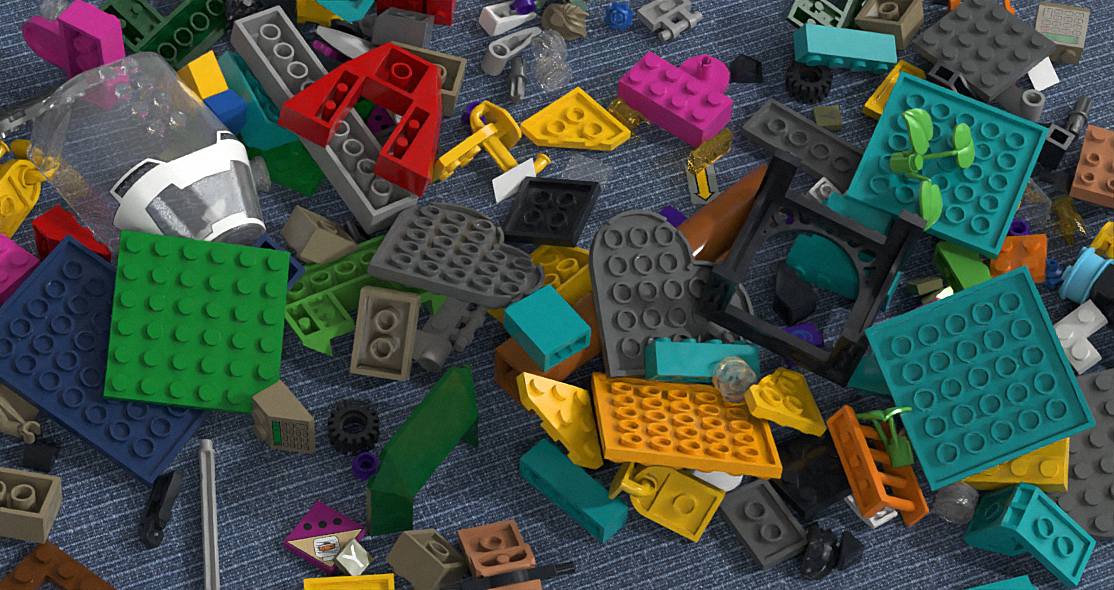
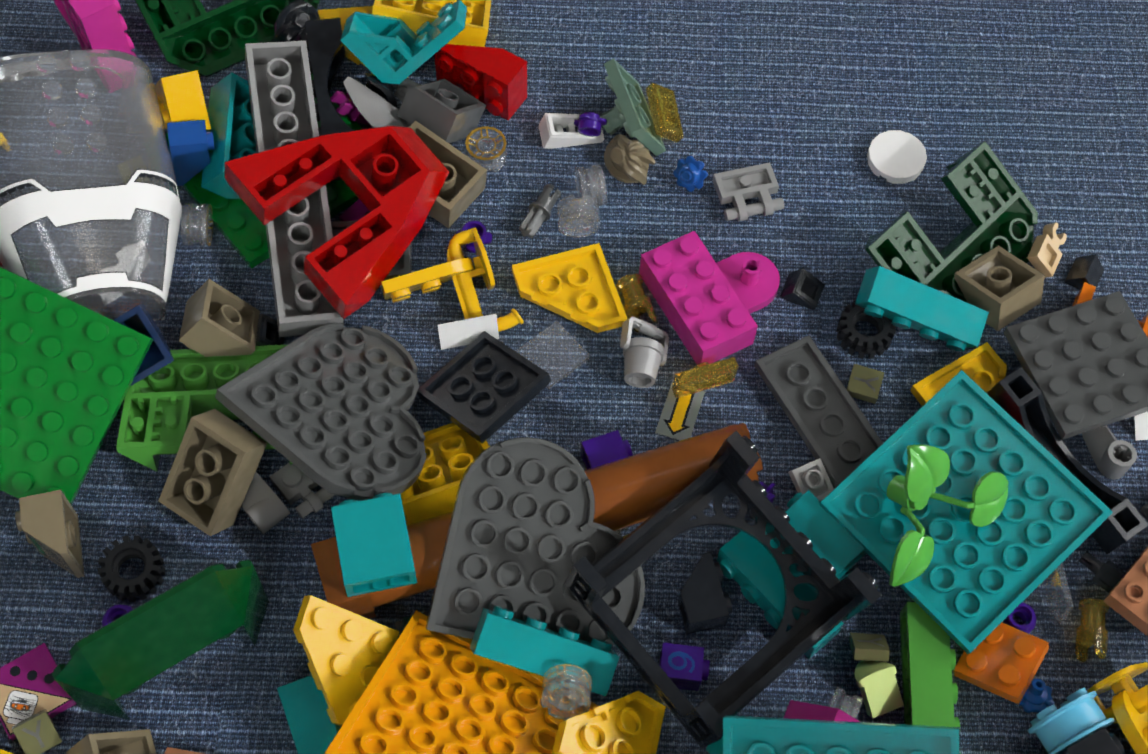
camera: 25 degrees right, 10 degrees up
(451, 43) = (487, 147): none -> clear wheel
(506, 49) = (546, 169): light grey piece -> none
(654, 150) = (642, 354): none -> light grey piece

